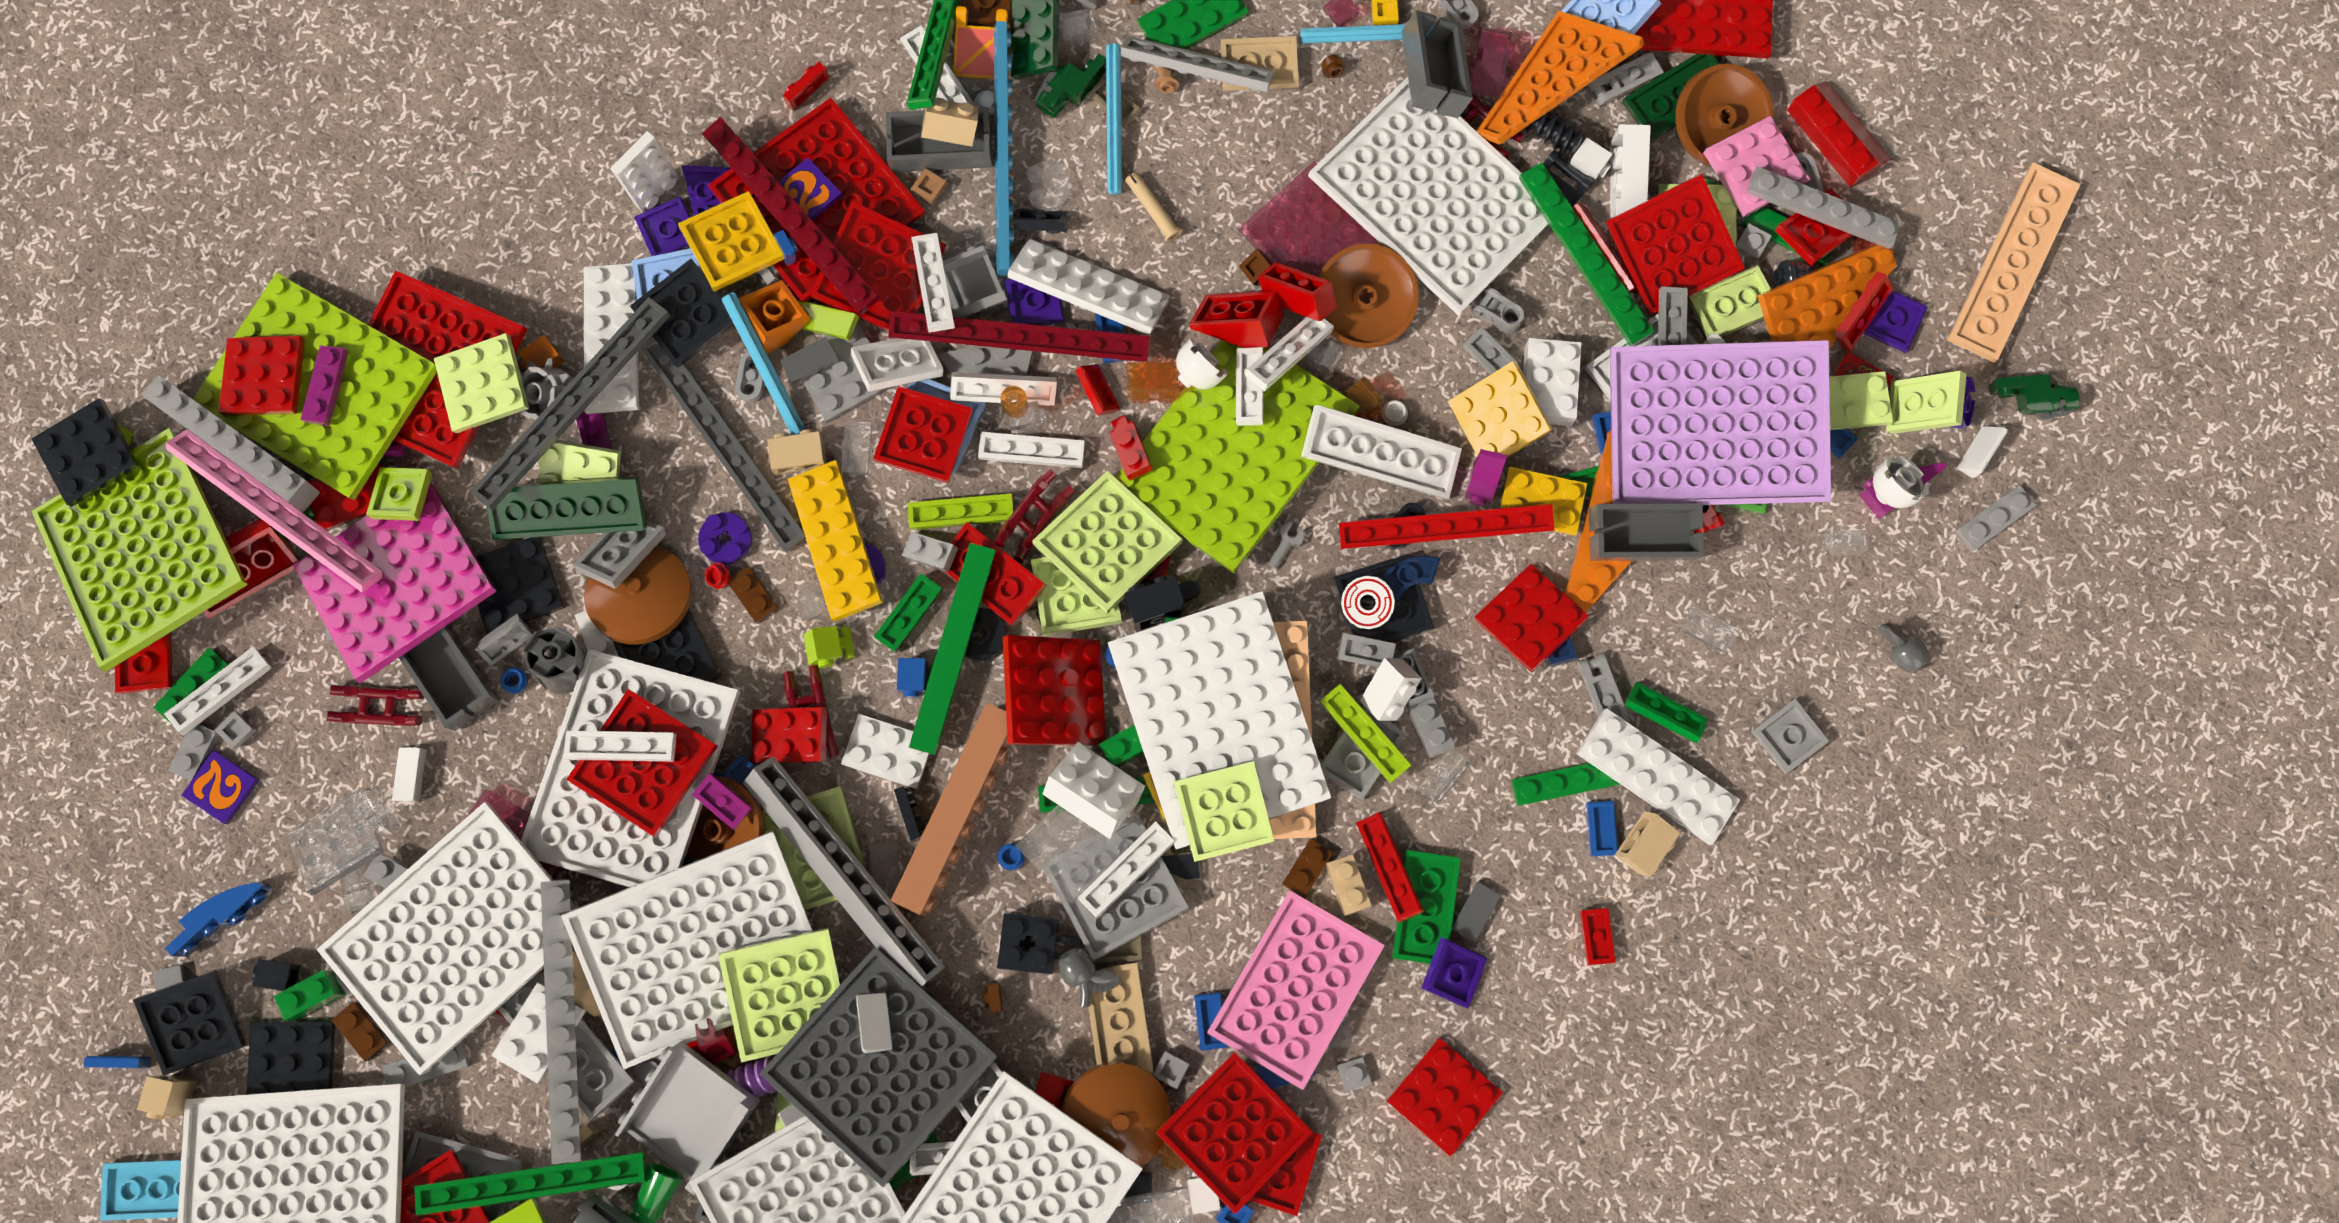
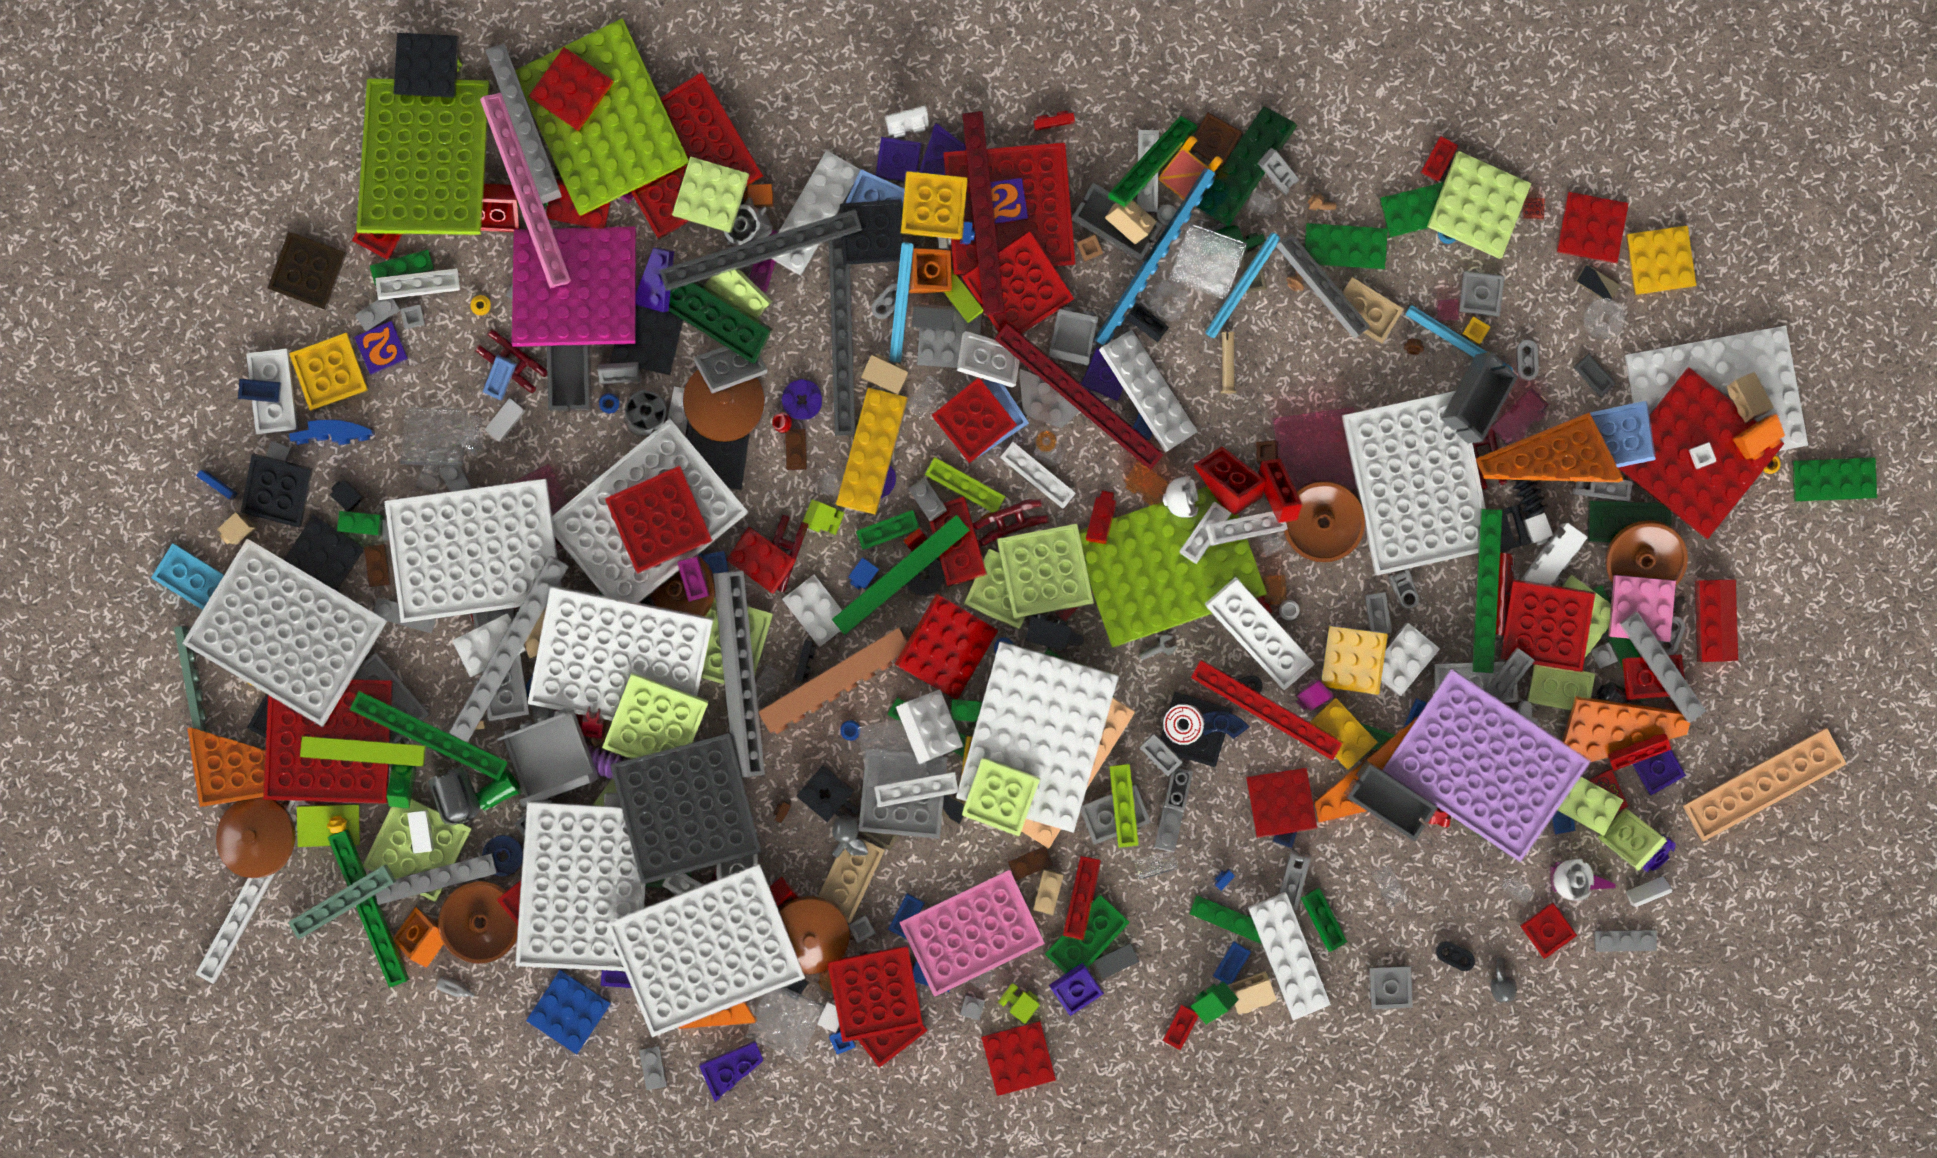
camera: 30 degrees right, 10 degrees up
(84, 758) = (307, 270): none -> dark brown plate
(104, 923) = (259, 390): none -> dark blue tile
(121, 916) = (273, 367): none -> white plate
(174, 852) = (328, 371): none -> yellow plate
(311, 672) = (487, 305): none -> yellow plate
(324, 385) = (608, 126): magenta plate -> none
(372, 731) = (499, 377): none -> medium blue tile
(399, 494) = (612, 231): lime plate -> none
(483, 526) = (651, 289): none -> dark purple wing
(620, 746) = (652, 501): white plate -> none
(874, 1022) = (699, 781): white slope -> none
(933, 282) = (1046, 323): white plate -> none
(943, 602) = (915, 539): none -> red plate
(989, 387) = (1044, 421): white plate -> none
(1060, 117) = (1207, 261): none -> clear plate
(1097, 389) = (1107, 464): red plate -> none
(1390, 689) = (1158, 789): white brick -> none
(1409, 1031) = (1023, 1006): none -> lime brick
(1528, 741) = (1223, 879): none -> blue plate
(1615, 881) = (1214, 1002): none -> green brick
(1832, 655) = (1454, 956): none -> black plate
(1909, 561) = (1548, 930): none -> red plate
(2037, 395) = (1711, 883): dark green plate -> none

